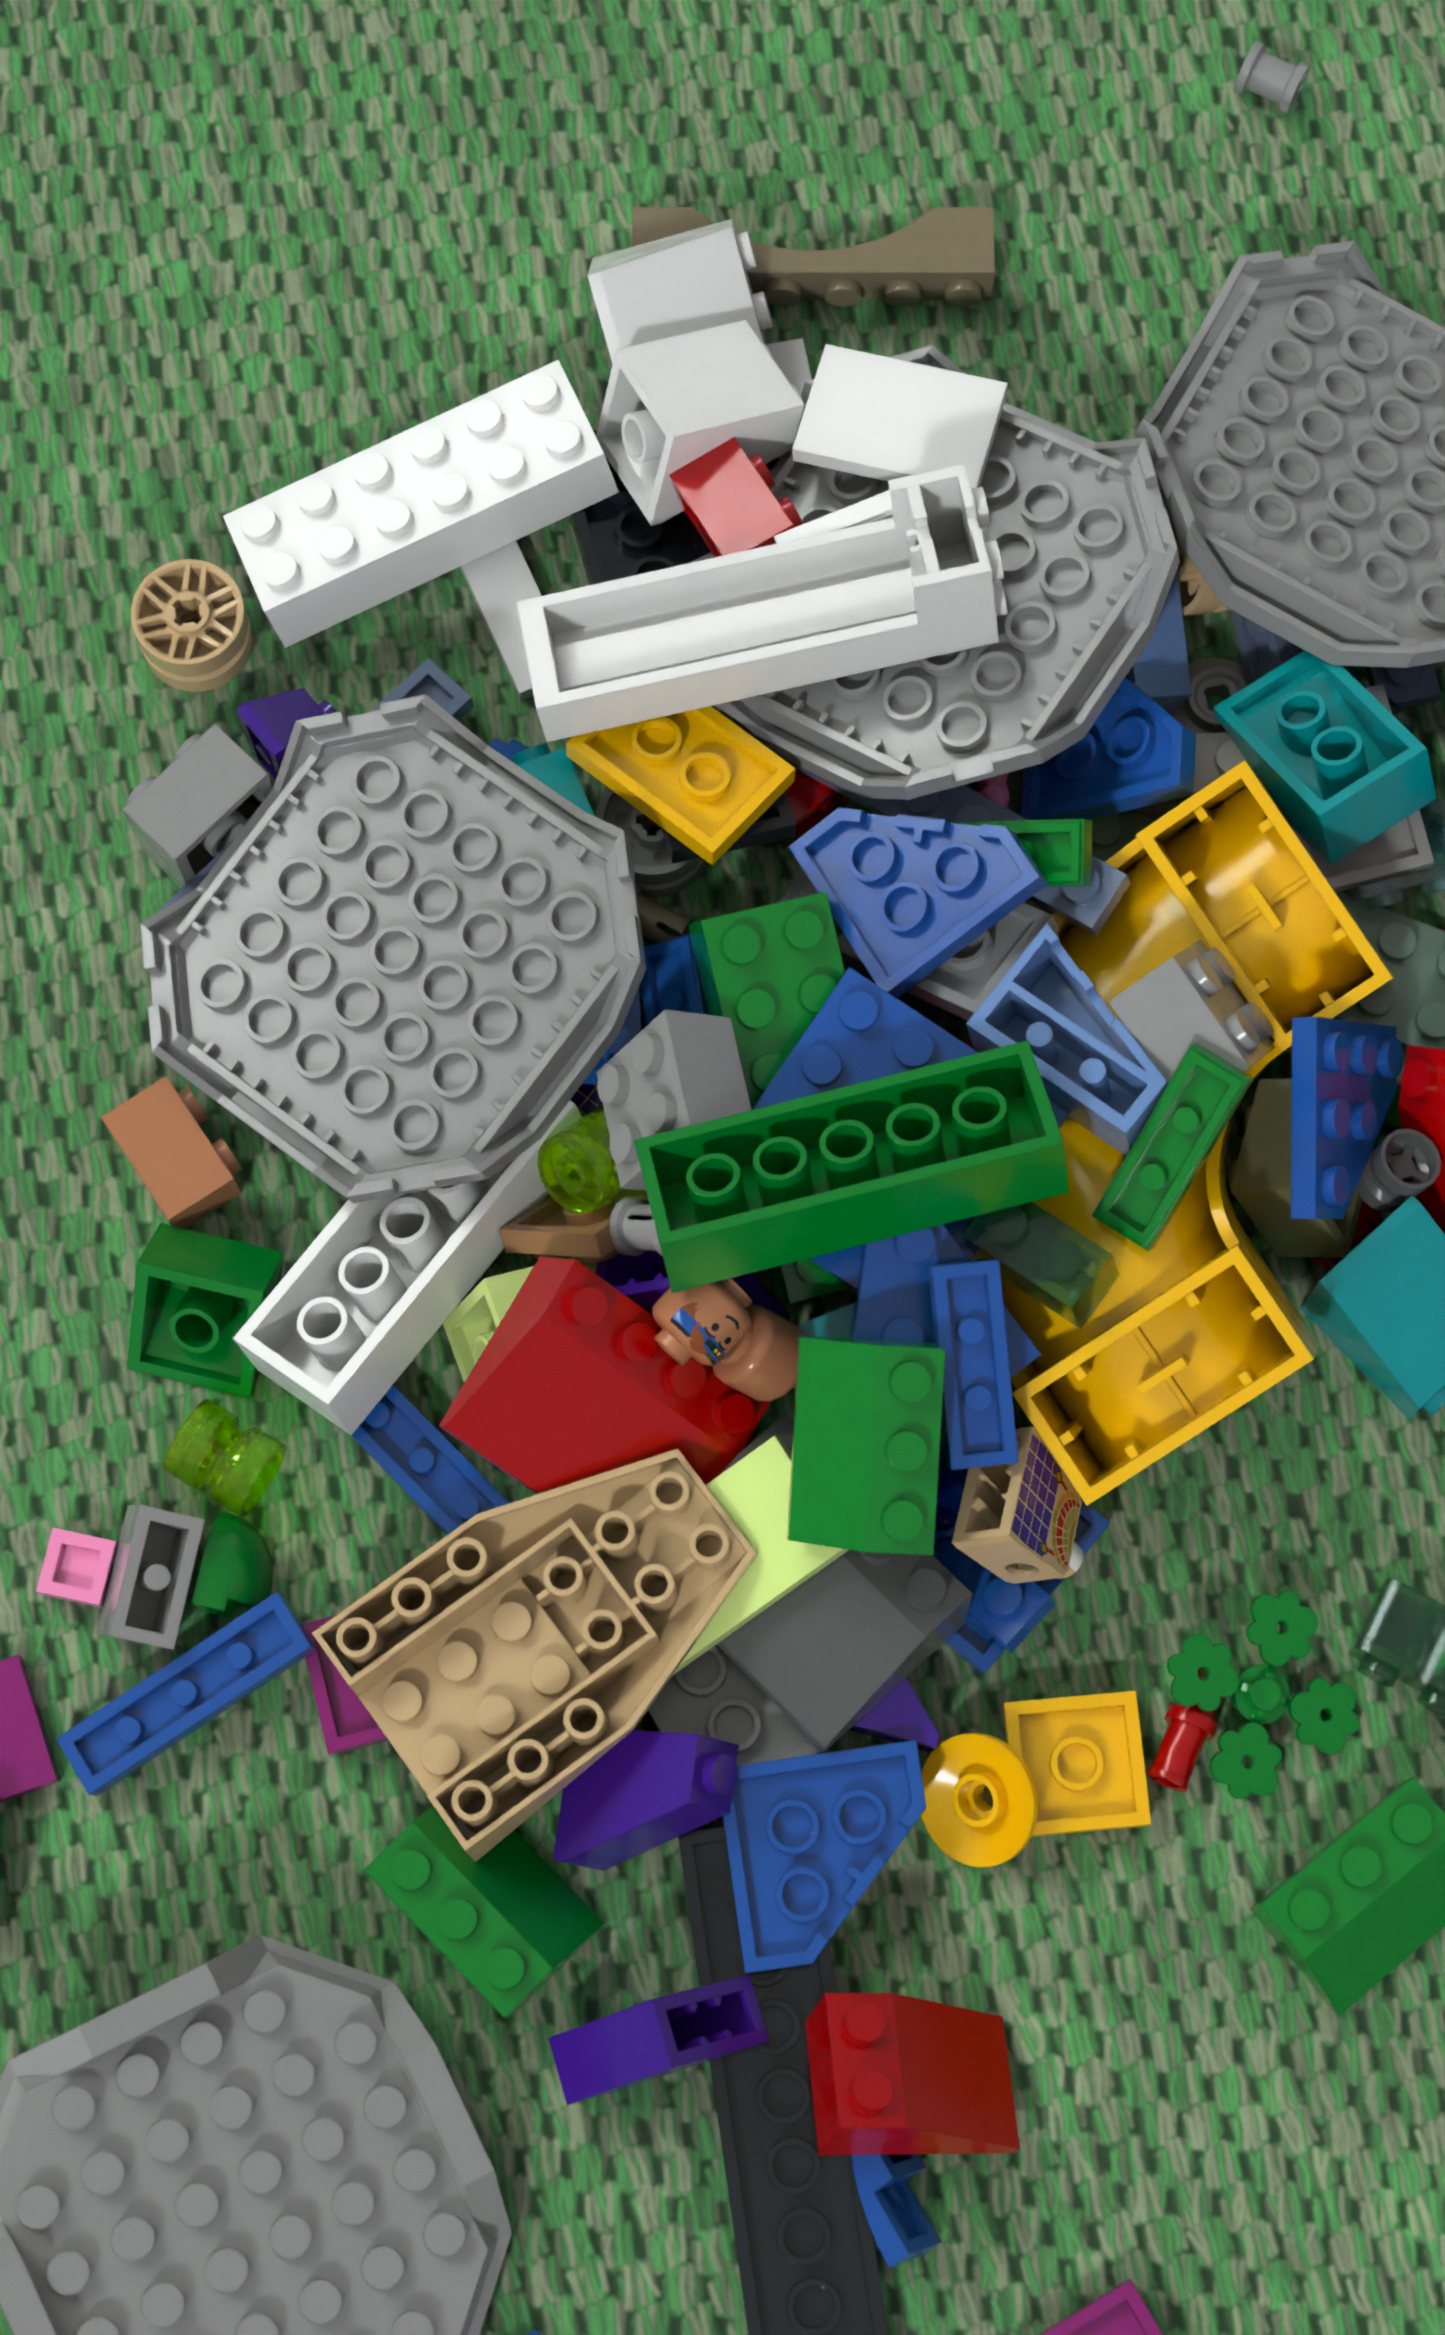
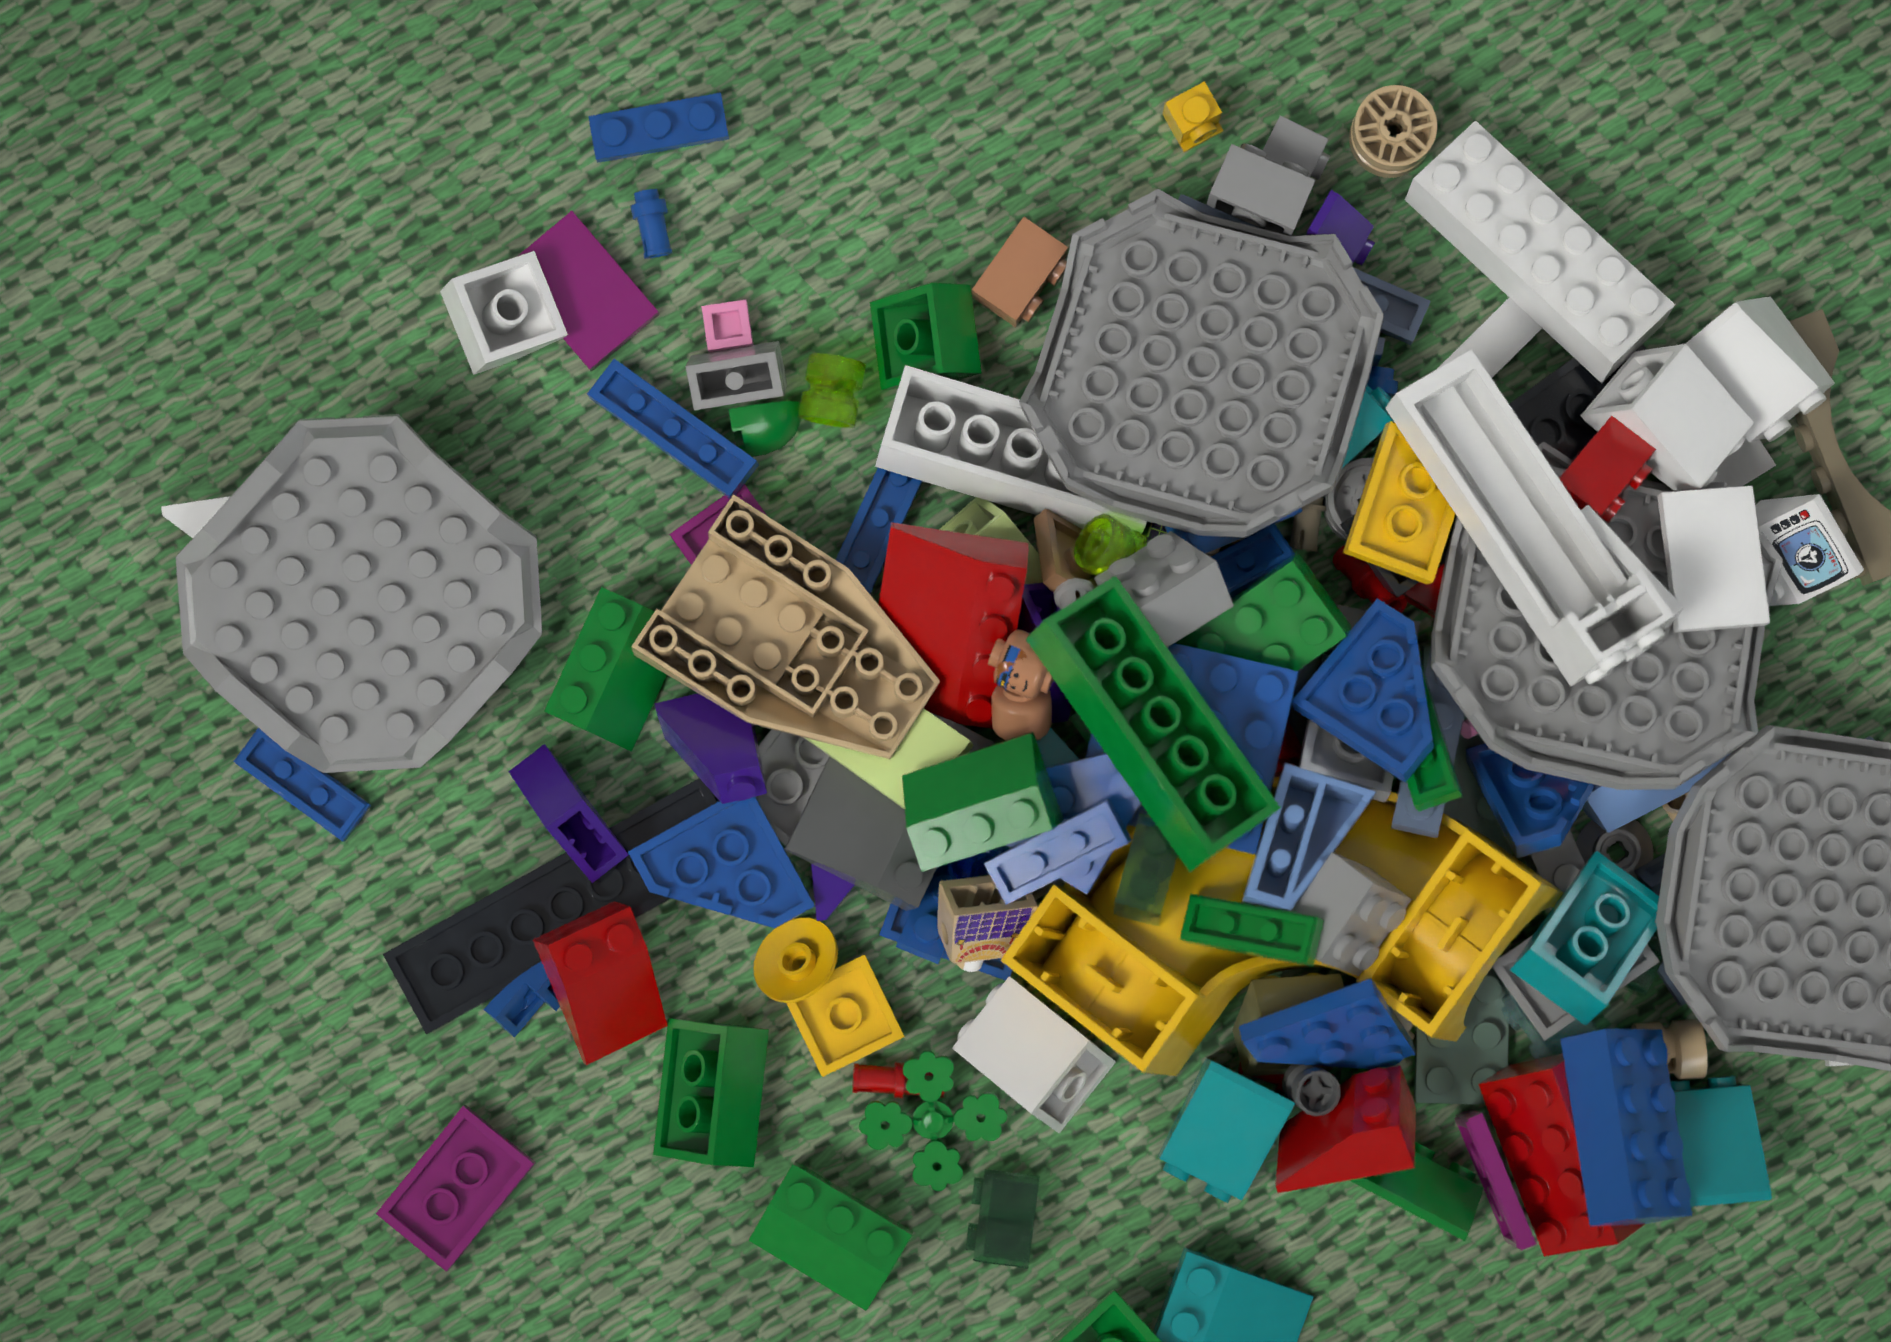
camera: 75 degrees right, 10 degrees up
(64, 861) = (1193, 116): none -> yellow brick
(154, 743) = (1297, 145): none -> light grey brick
(749, 868) = (1365, 582): none -> red pin
(925, 309) = (1810, 546): none -> slope
(1118, 1989) = (711, 1093): none -> green slope
(1217, 1526) = (1033, 1054): none -> white slope

